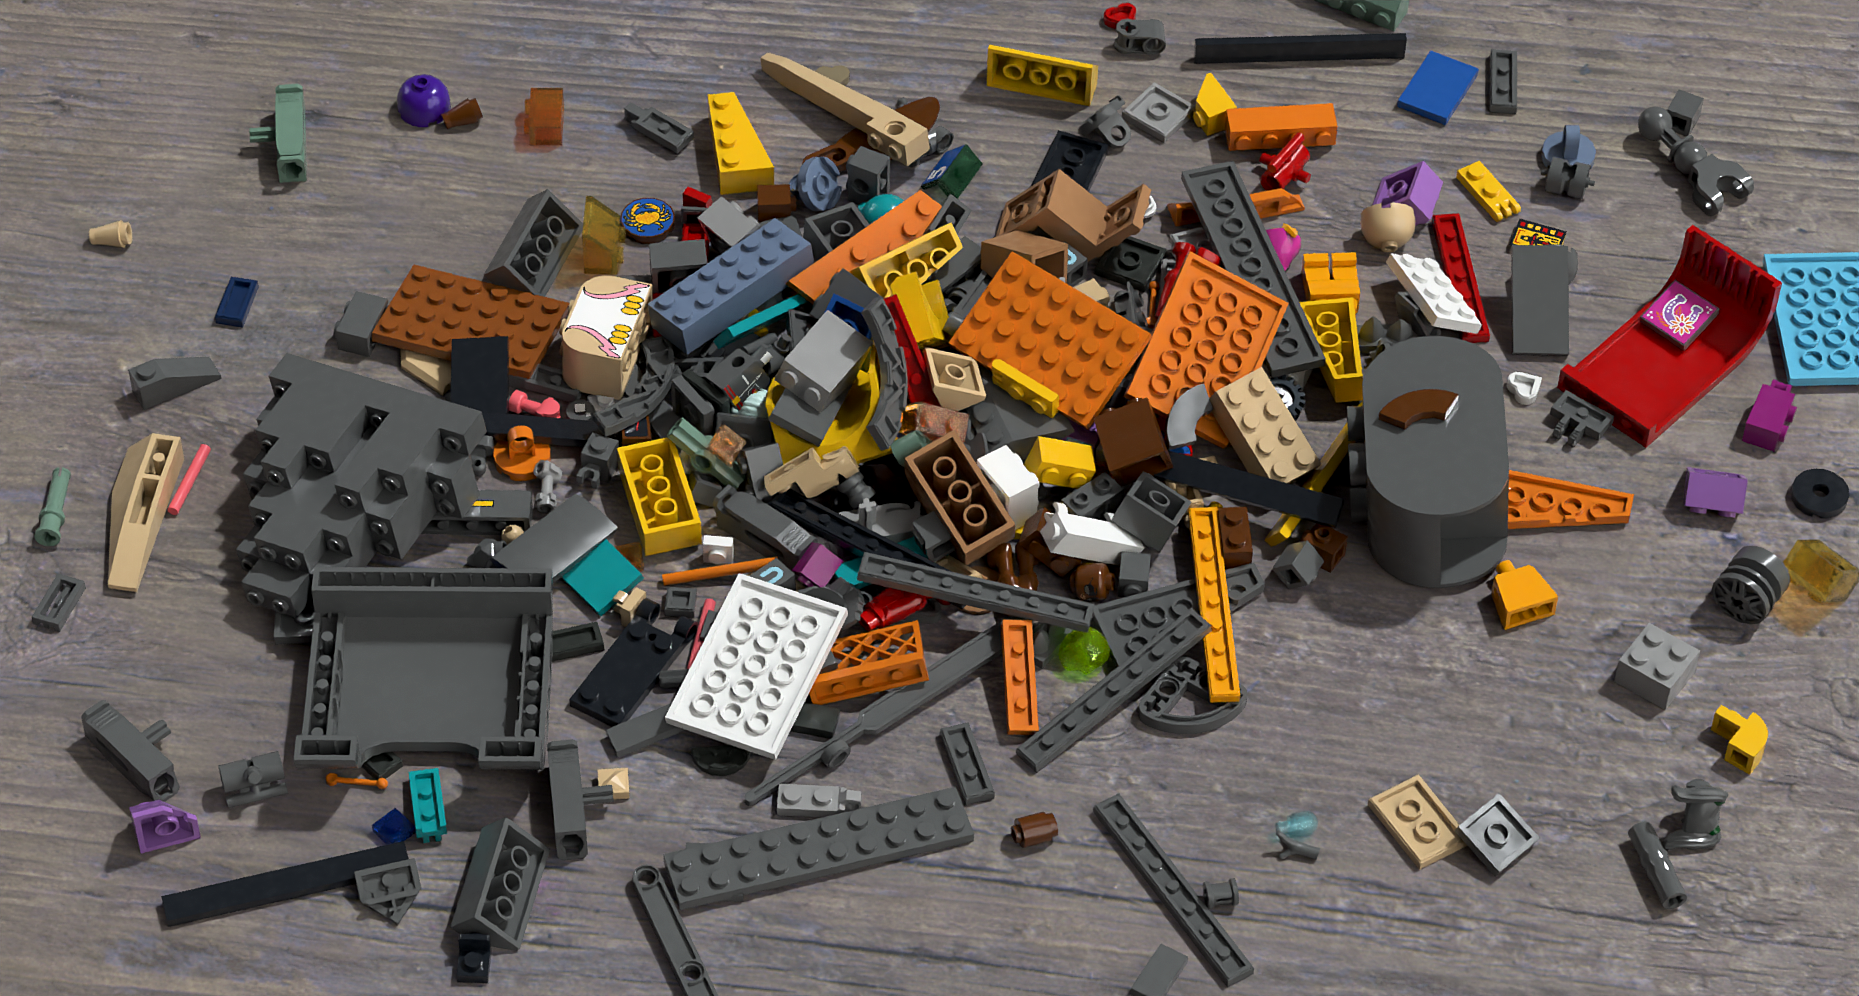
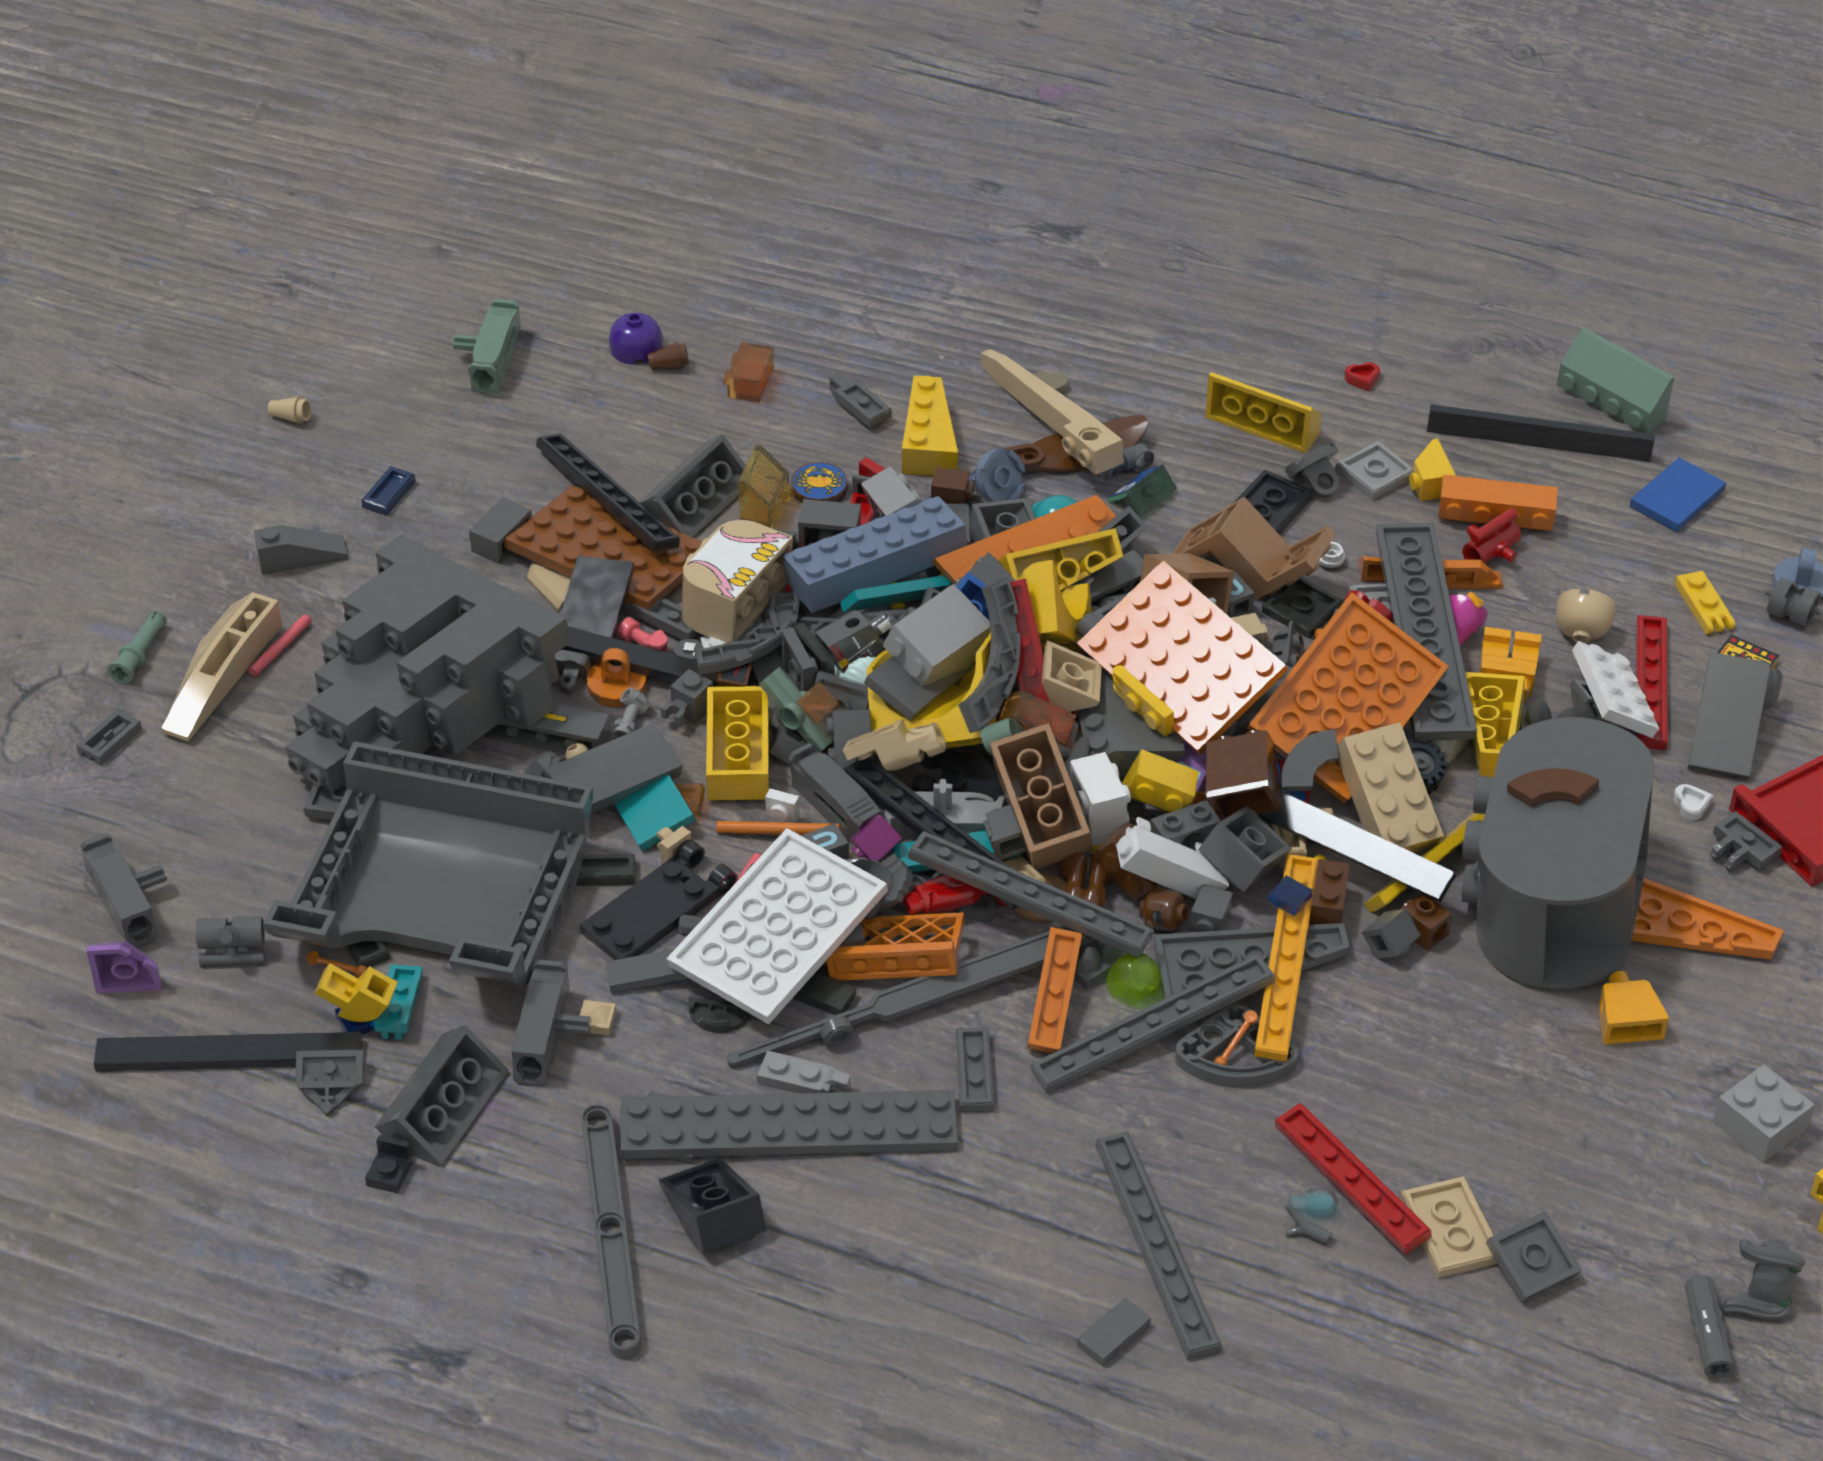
camera: 15 degrees right, 5 degrees down
(397, 810) = (357, 998): none -> yellow brick
(453, 266) = (608, 493): none -> black tile
(680, 602) = (728, 851): dark grey tile -> none
(778, 935) = (714, 1205): none -> black slope
(855, 489) = (938, 768): dark grey wheel -> none
(867, 175) = (1051, 474): dark grey brick -> none
(1034, 829) = (1023, 1150): reddish brown brick -> none
(1142, 36) = (1378, 396): dark grey piece -> none
(1198, 668) = (1250, 1019): none -> orange hinge
(1203, 547) = (1290, 895): none -> clear blue tile
(1220, 893) = (1206, 1258): dark grey bush -> none
(1324, 795) = (1353, 1178): none -> red tile
(1411, 186) = (1625, 583): medium lavender slope -> none
(1503, 81) = (1750, 500): dark grey tile -> none

